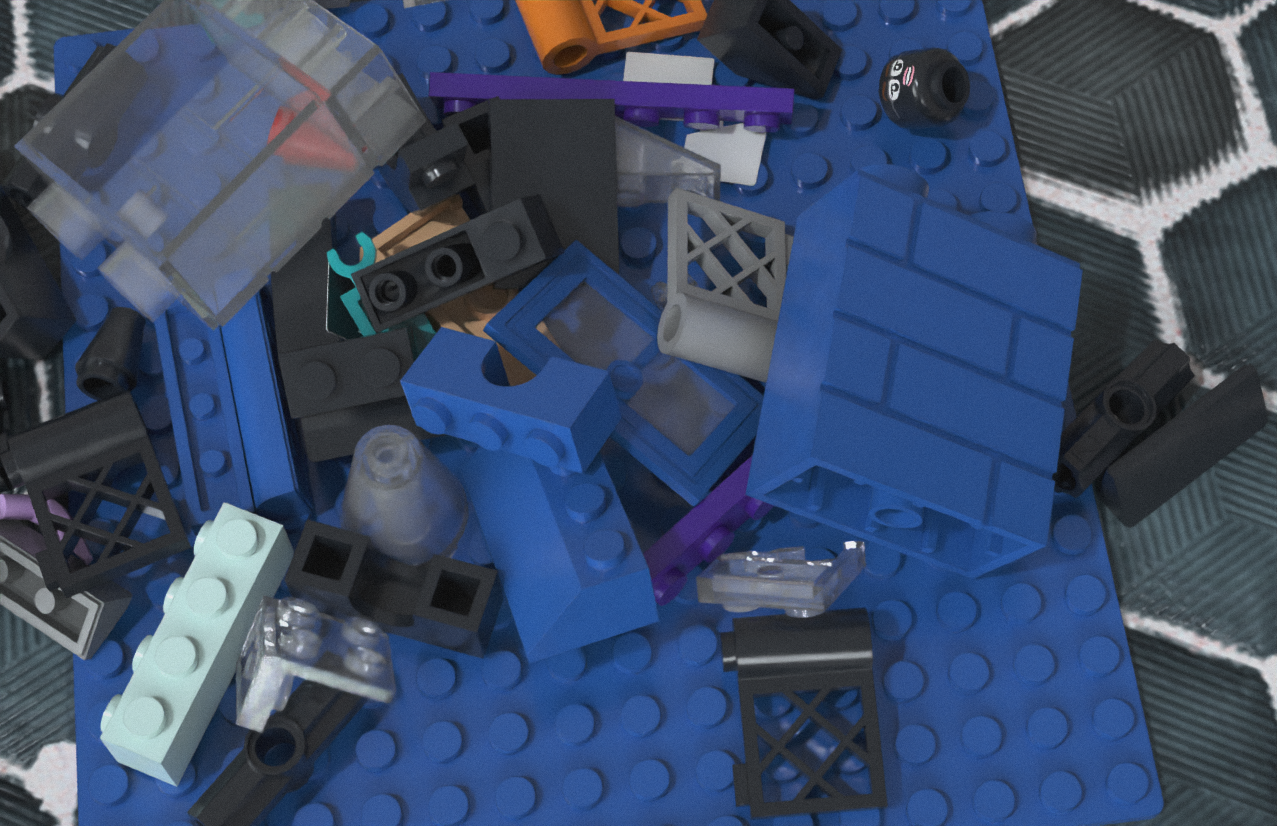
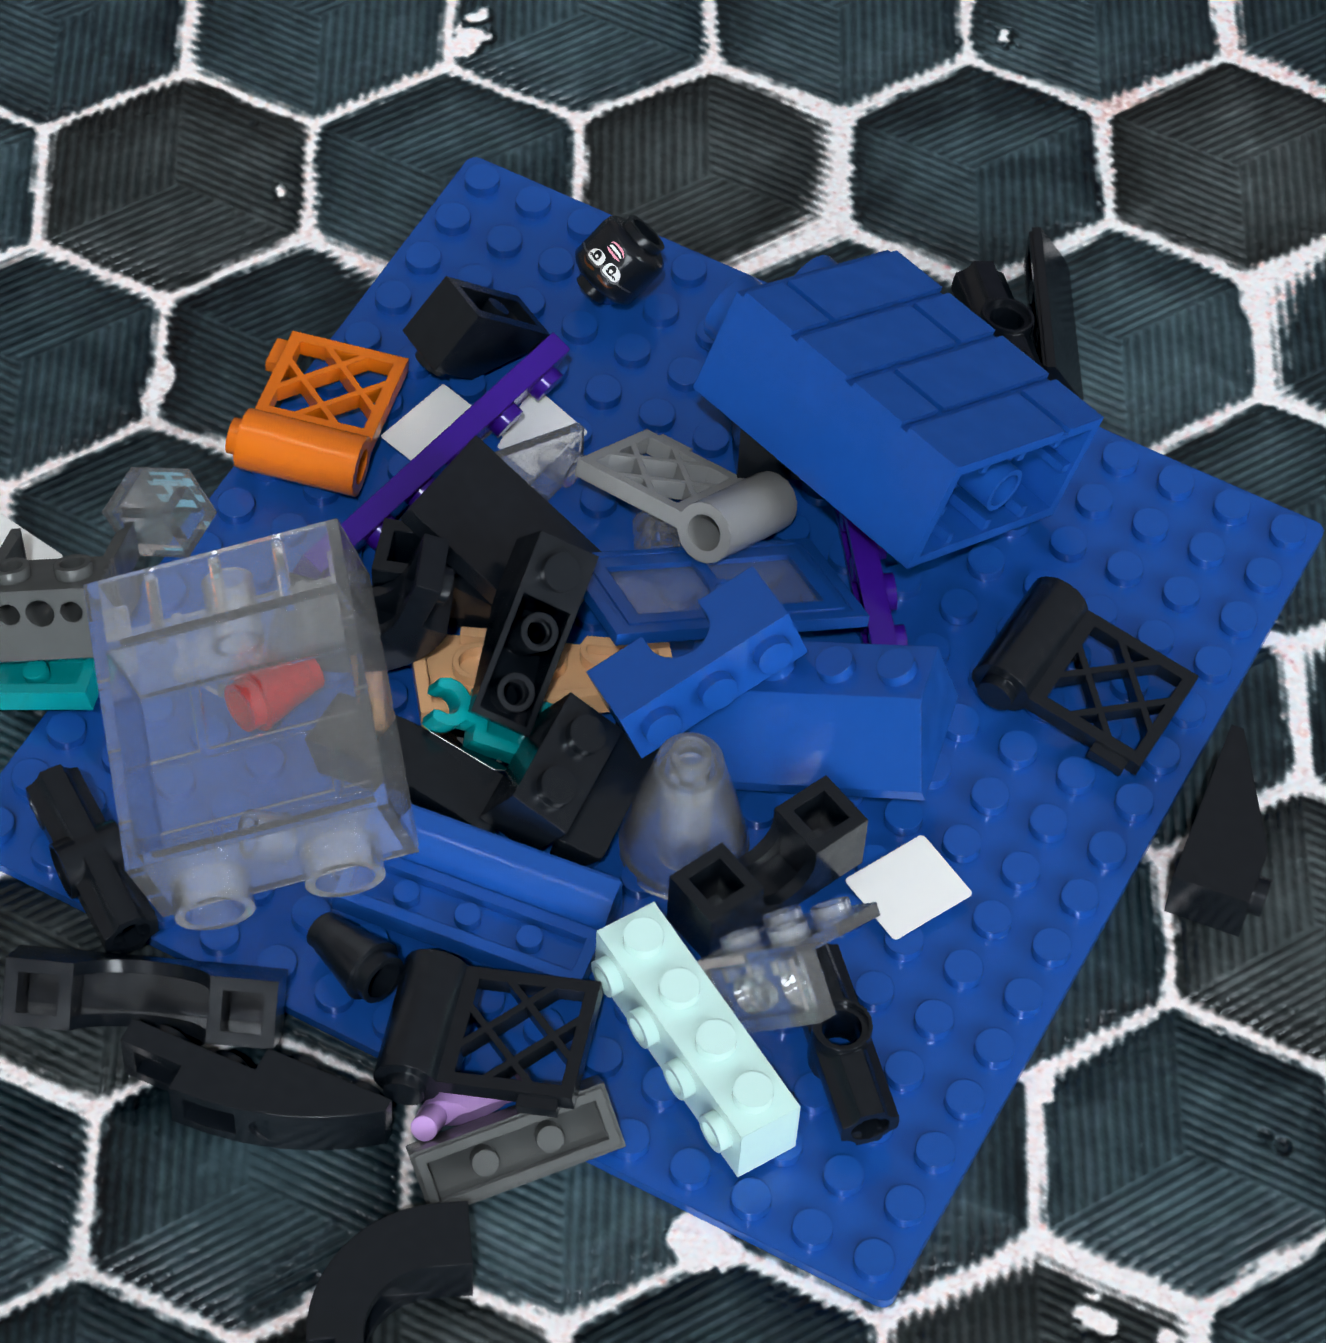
camera: 60 degrees left, 10 degrees down
(493, 711) = (909, 886): none -> white sticker
(780, 580) = (984, 606): clear wing -> none

